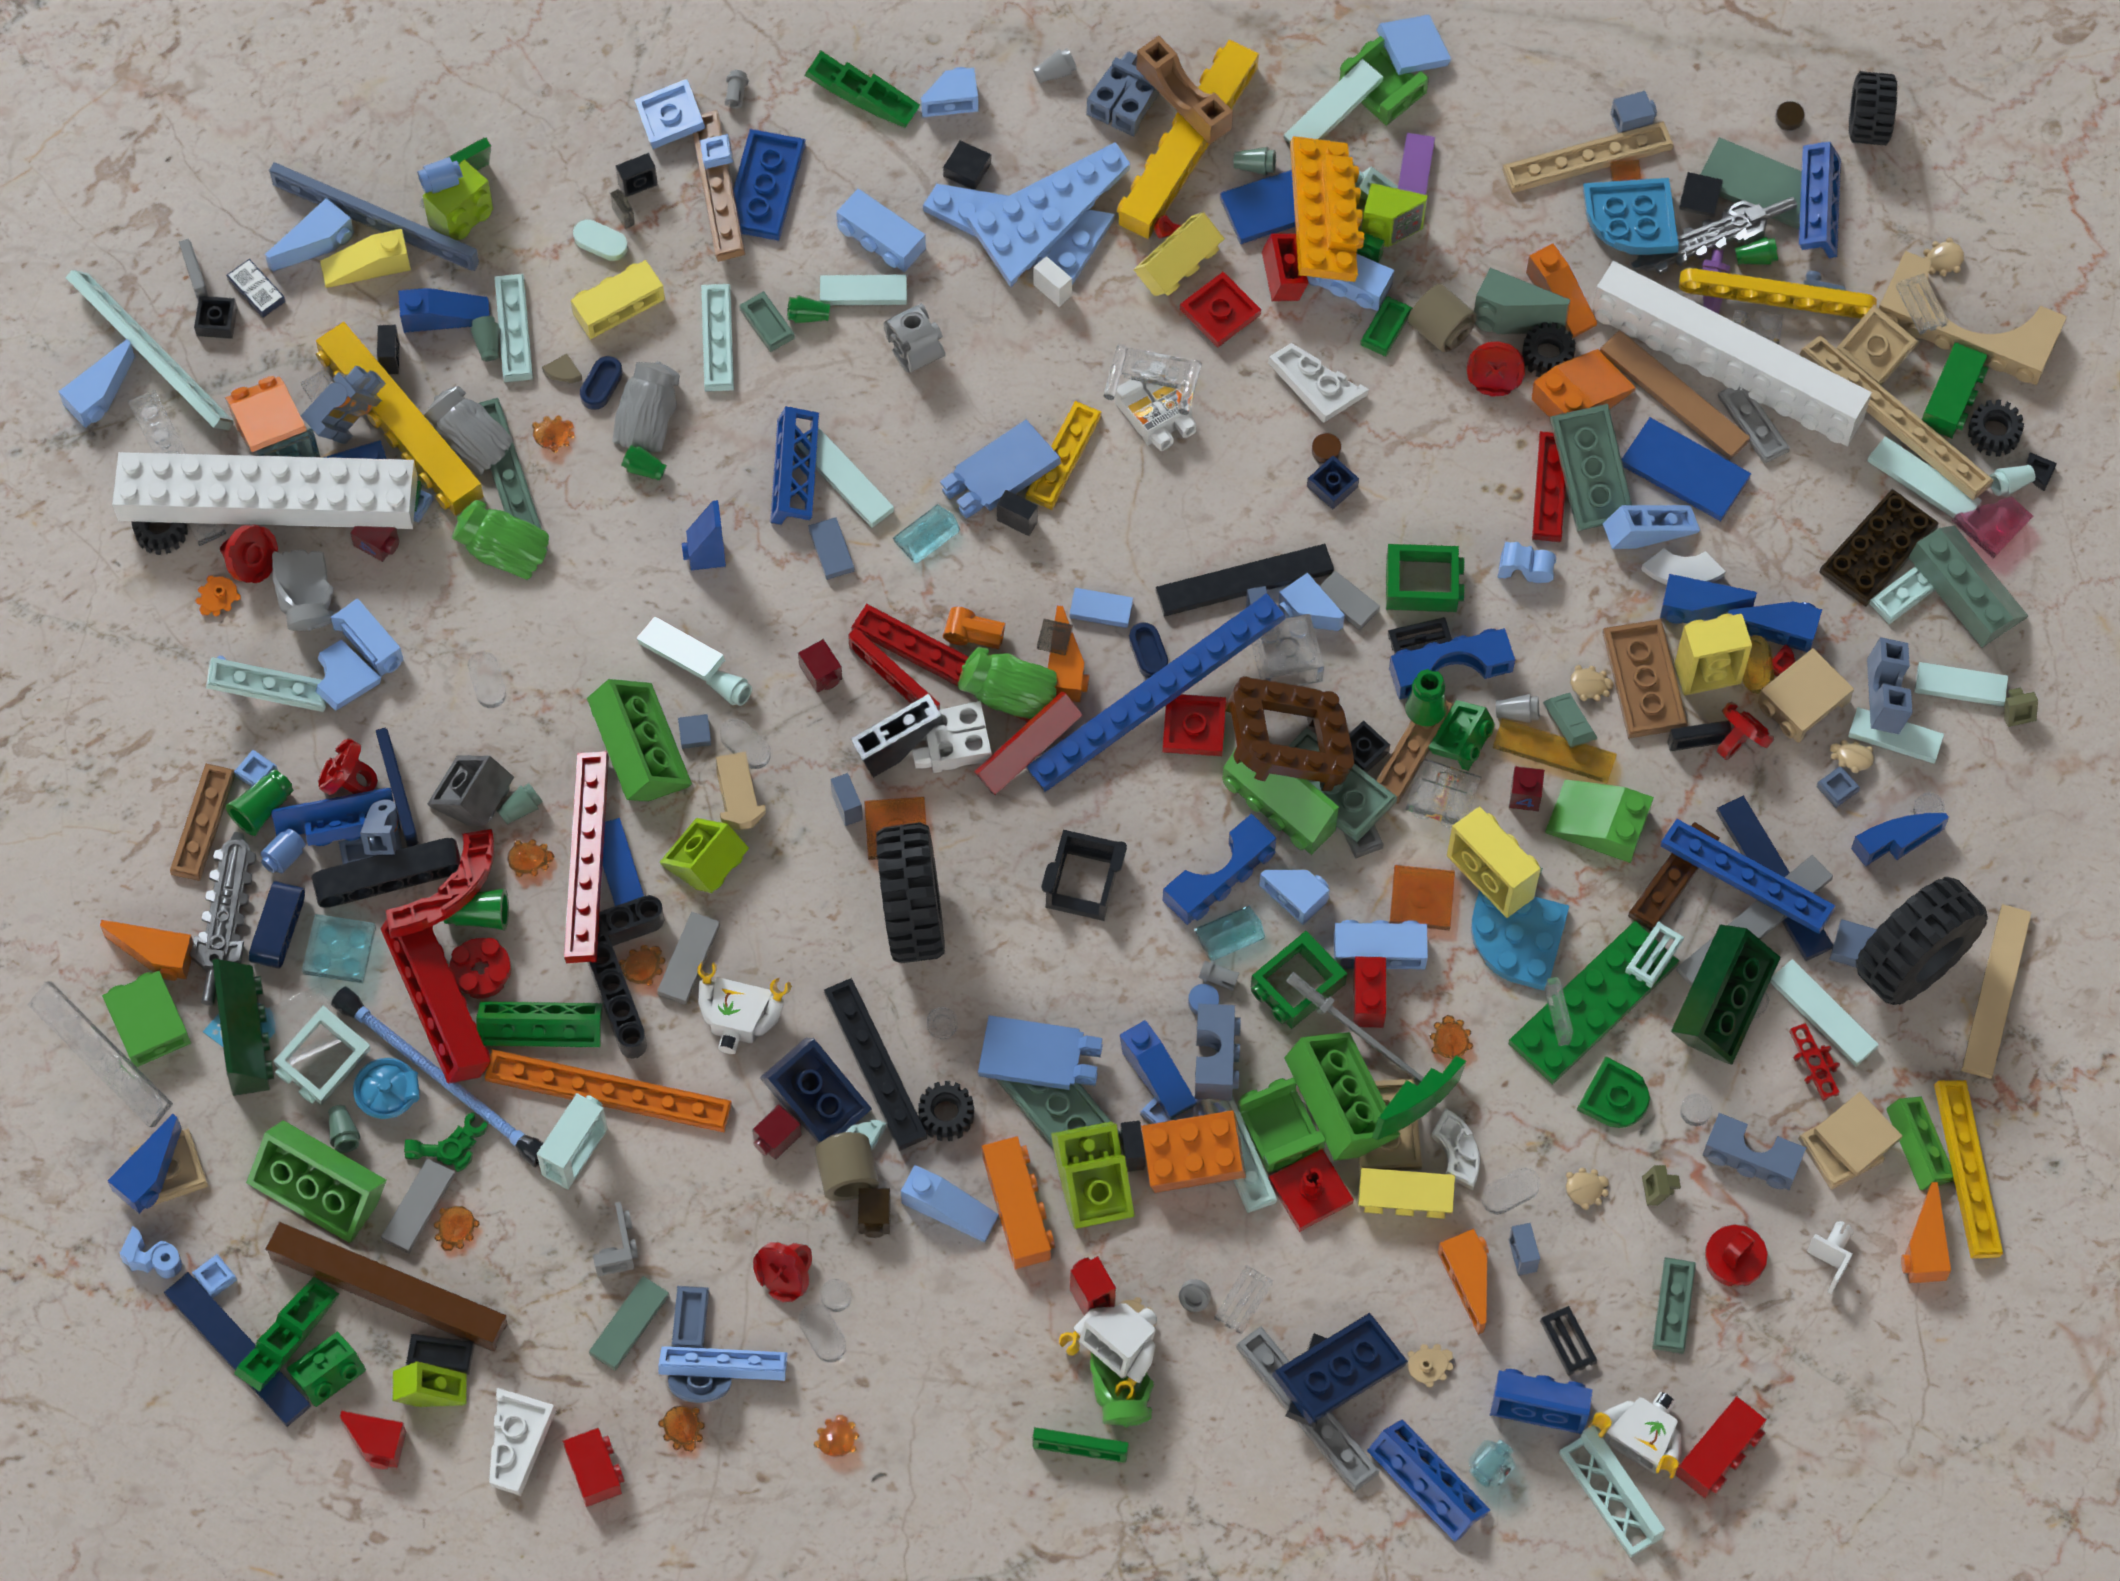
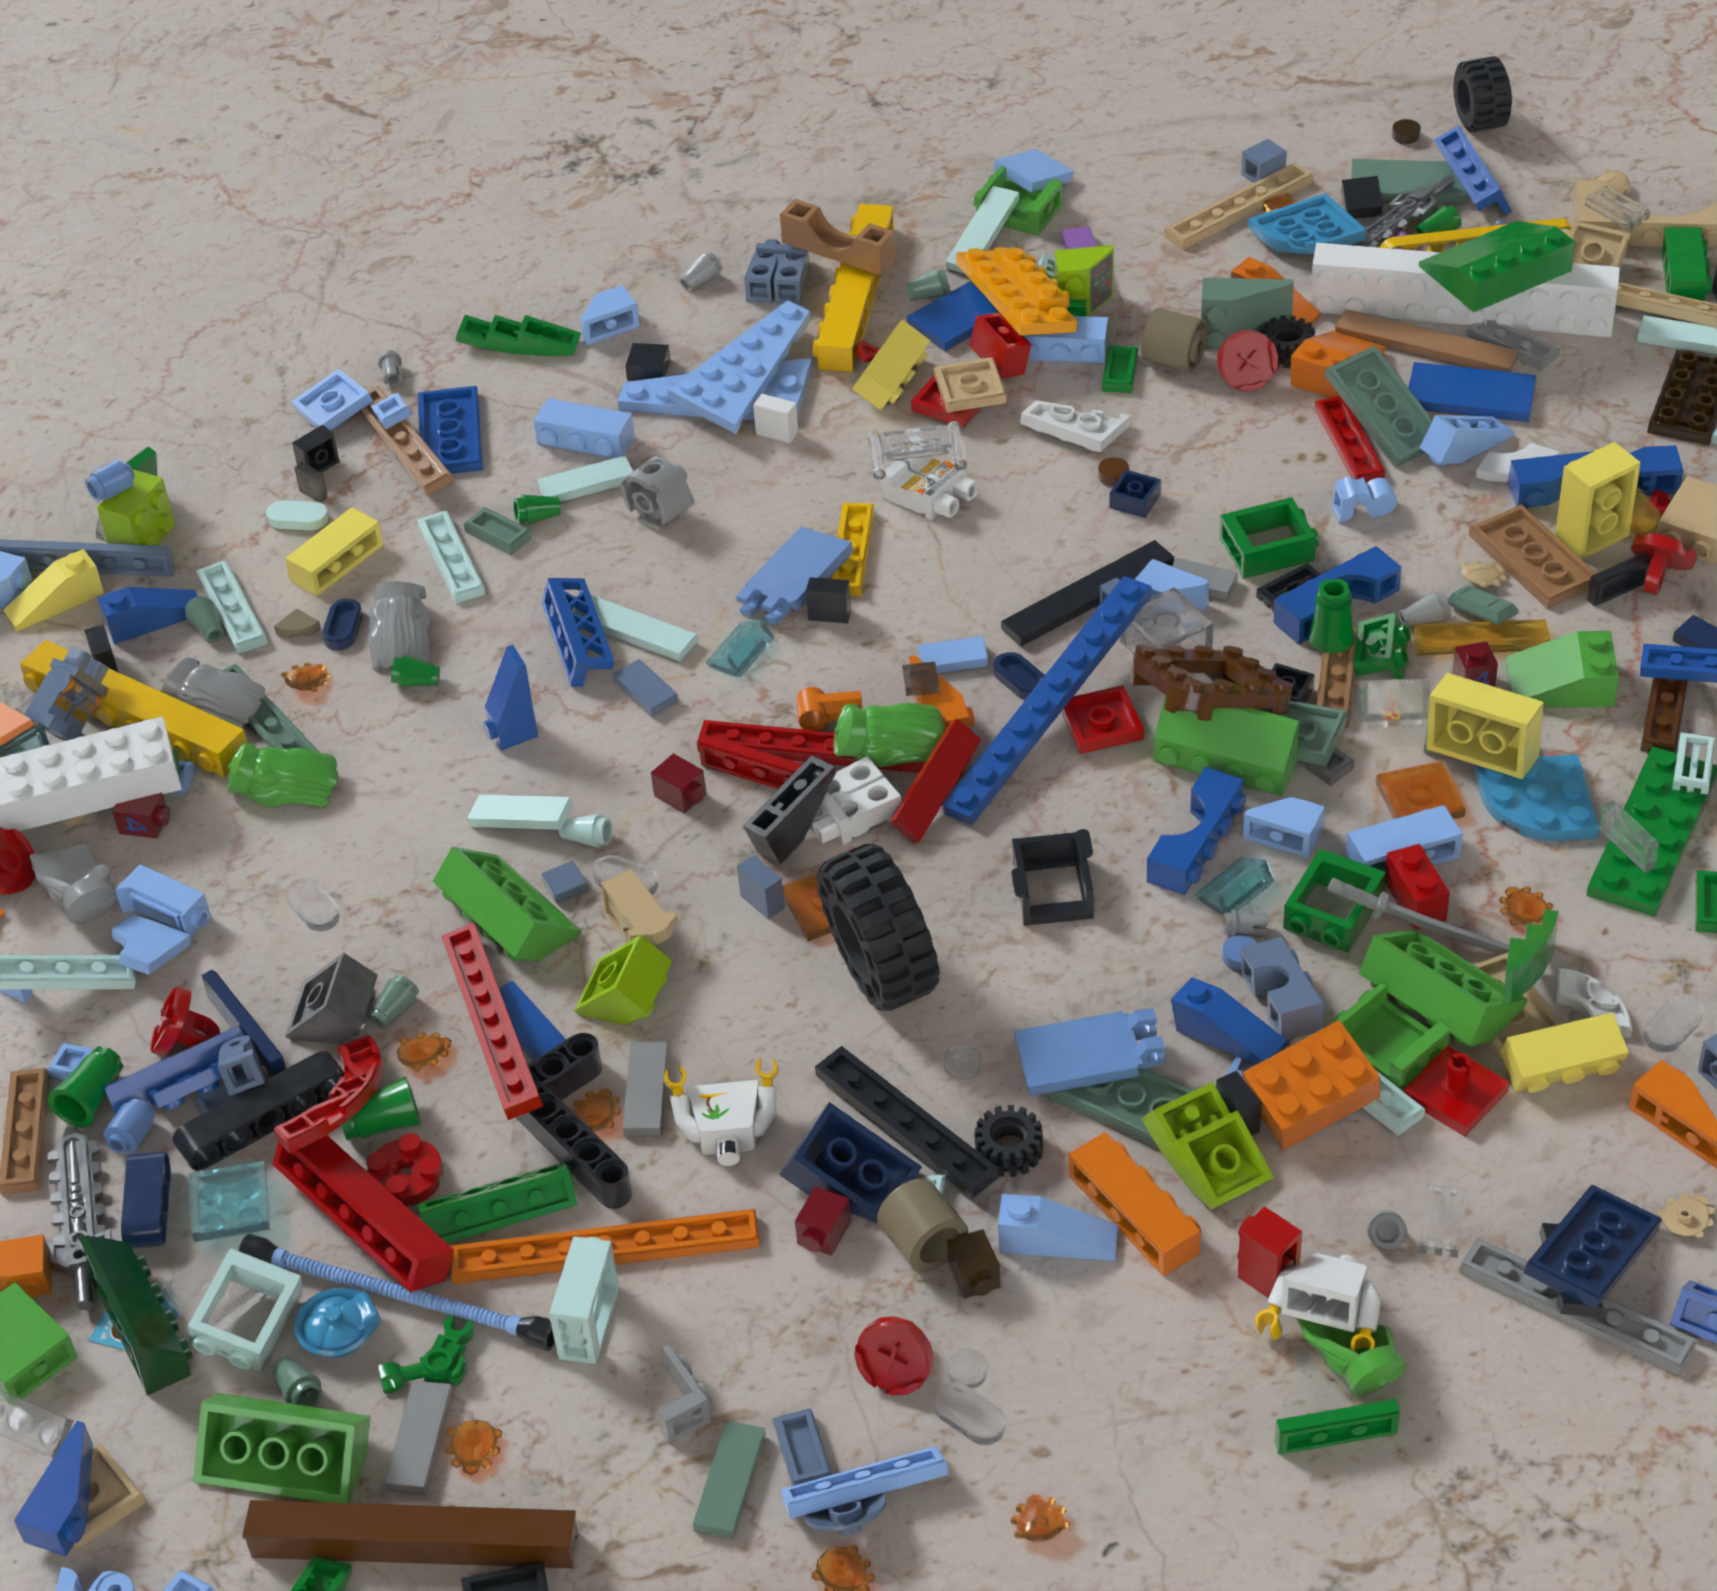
camera: 15 degrees left, 20 degrees down
(1238, 305) = (970, 385): none -> tan tile
(1761, 351) = (1502, 263): none -> green slope

